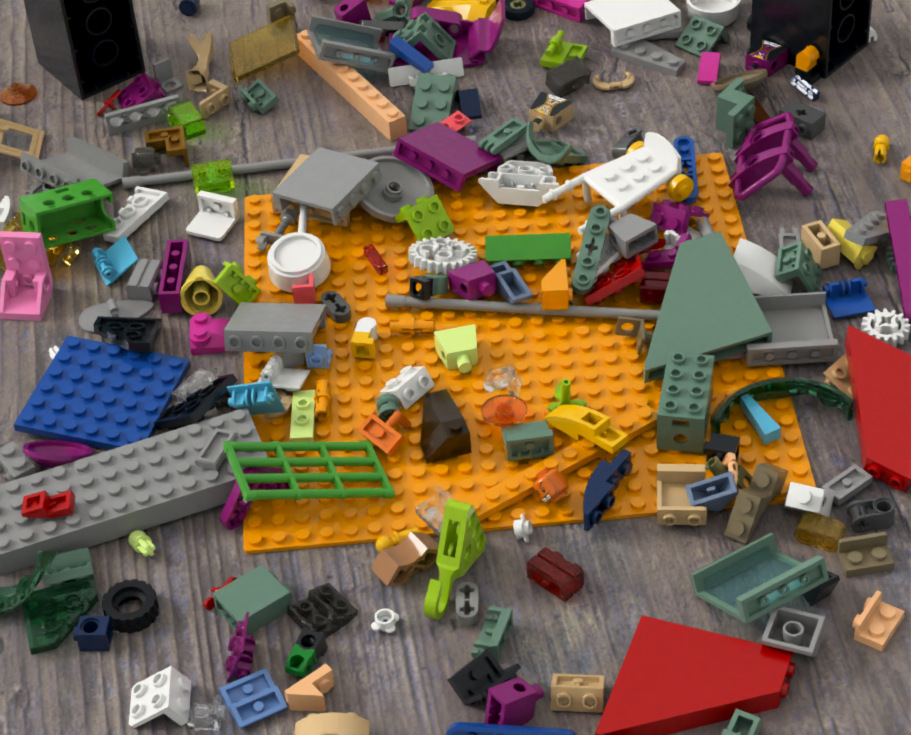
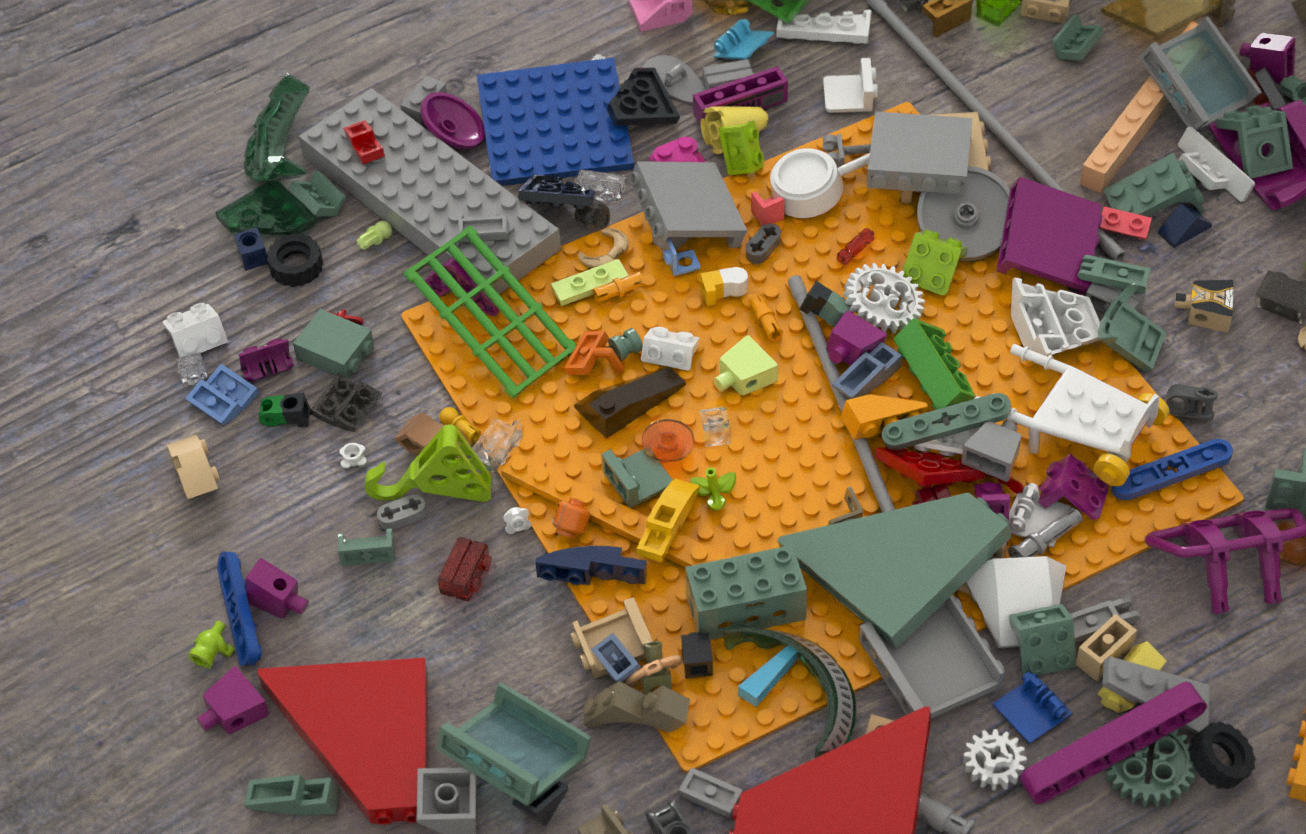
camera: 65 degrees right, 10 degrees up
(213, 176) = (913, 60): clear neon green brick -> none
(257, 397) = (571, 228): medium azure hinge -> none
(281, 377) = (630, 241): white hinge -> none
(308, 692) = (242, 429): light nougat slope -> none
(410, 54) = (1214, 134): blue piece -> none
(478, 676) = (302, 555): black bracket -> none
(577, 693) = (319, 639): tan bracket -> none
(808, 499) = (656, 757): white torso -> none
(819, 531) = (624, 786): clear yellow beam -> none

